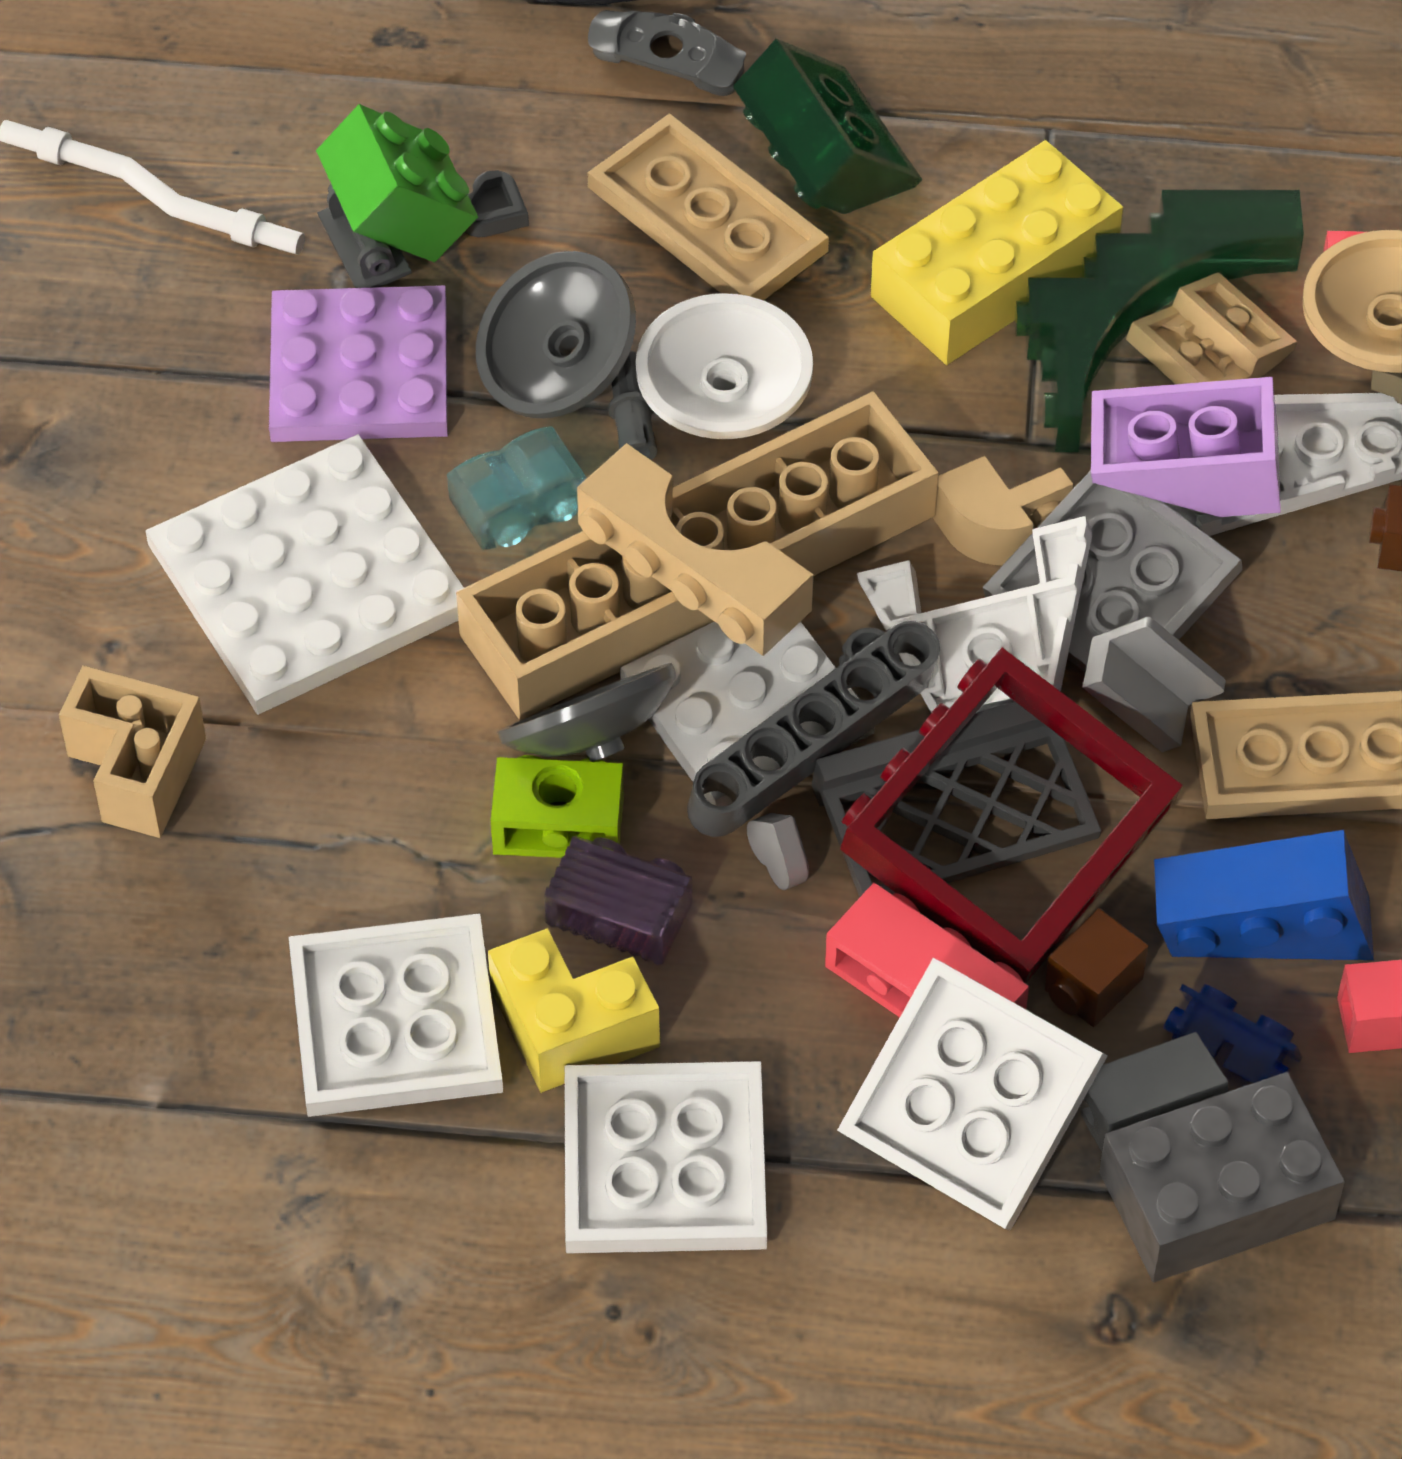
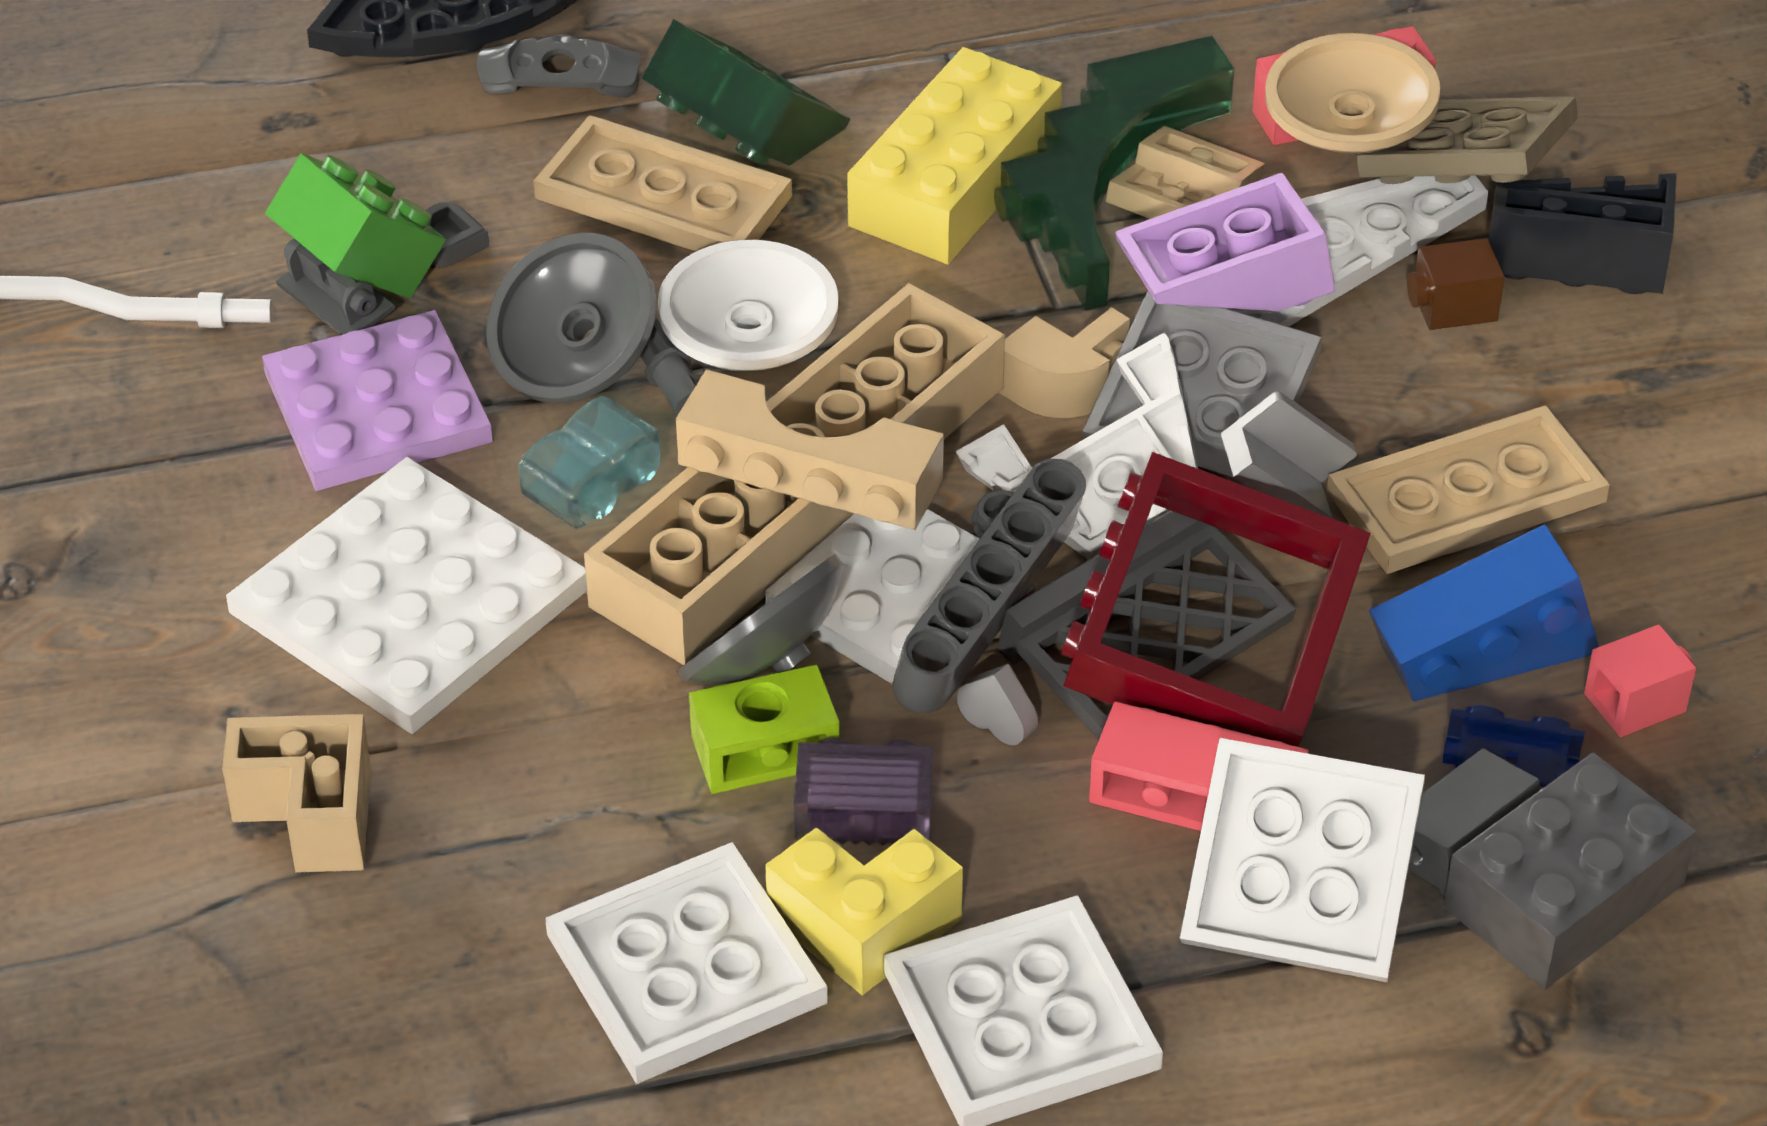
camera: 20 degrees left, 10 degrees down
(1095, 968) = (1357, 717): reddish brown brick -> none

